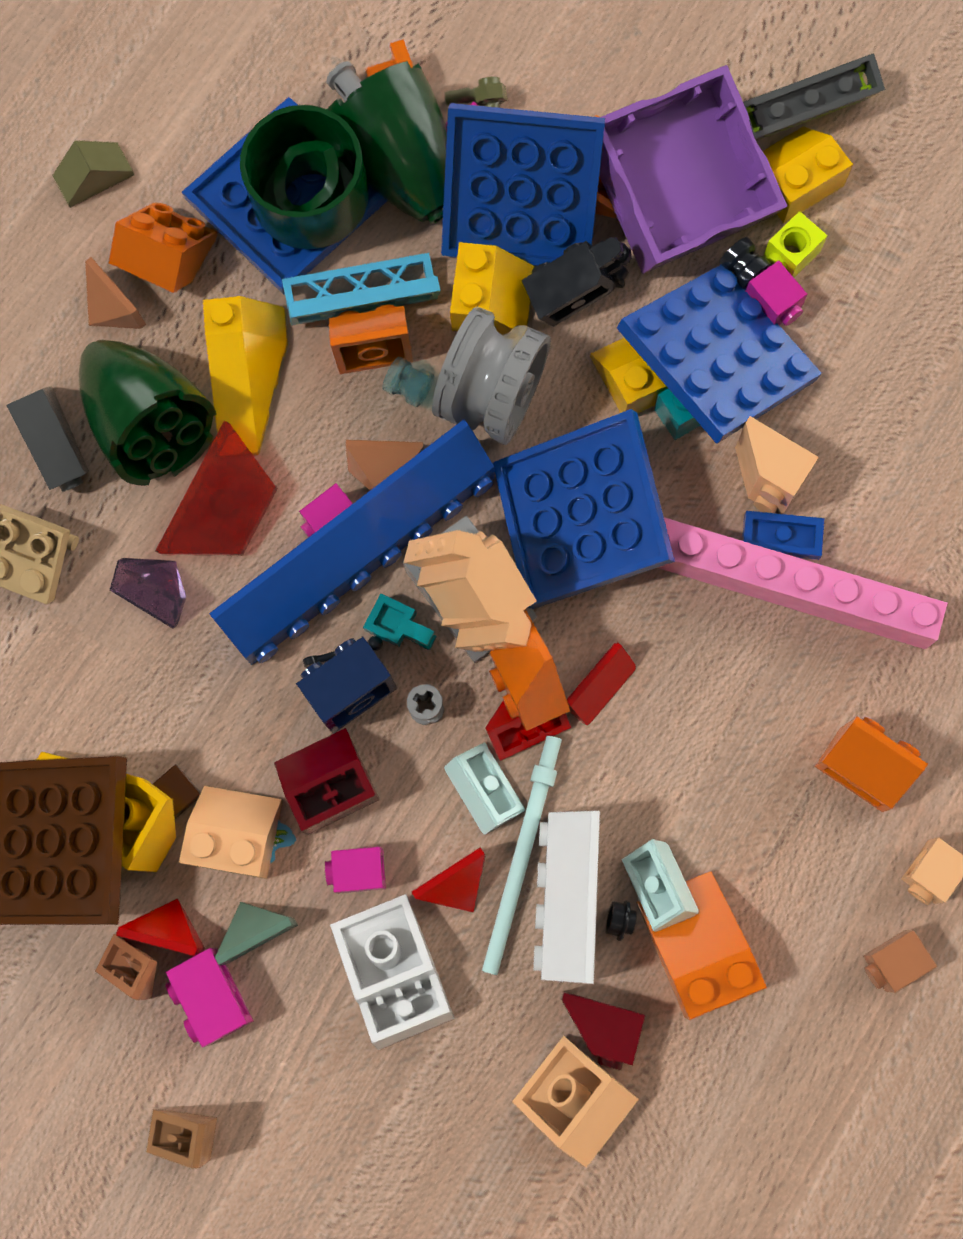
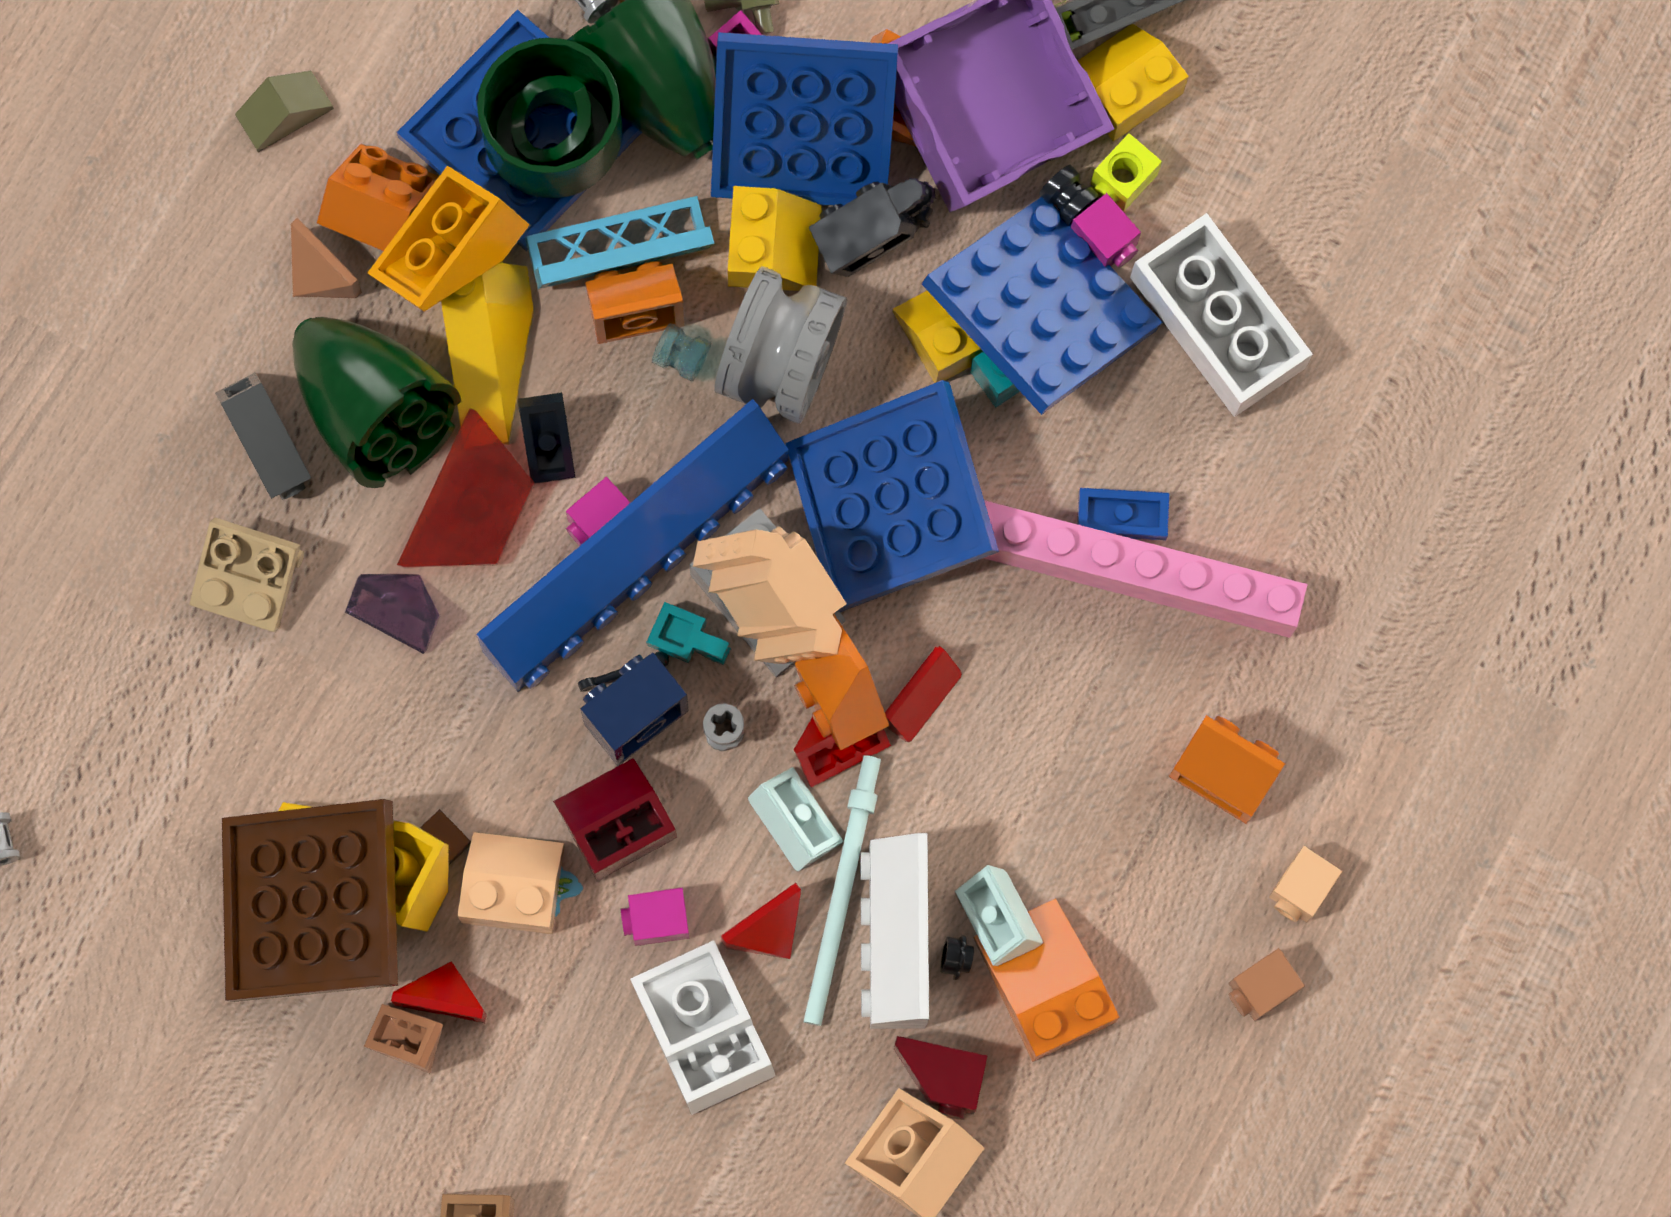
camera: 15 degrees left, 0 degrees up
(207, 998) = (498, 1066): dark pink brick -> none
(213, 276) = (448, 241): none -> light orange slope
(250, 930) = (541, 989): sand green slope -> none
(288, 448) = (546, 437): none -> black slope
(377, 460) = (655, 449): nougat slope -> none
(771, 466) = (1106, 438): light nougat slope -> none
(874, 367) = (1220, 315): none -> white brick

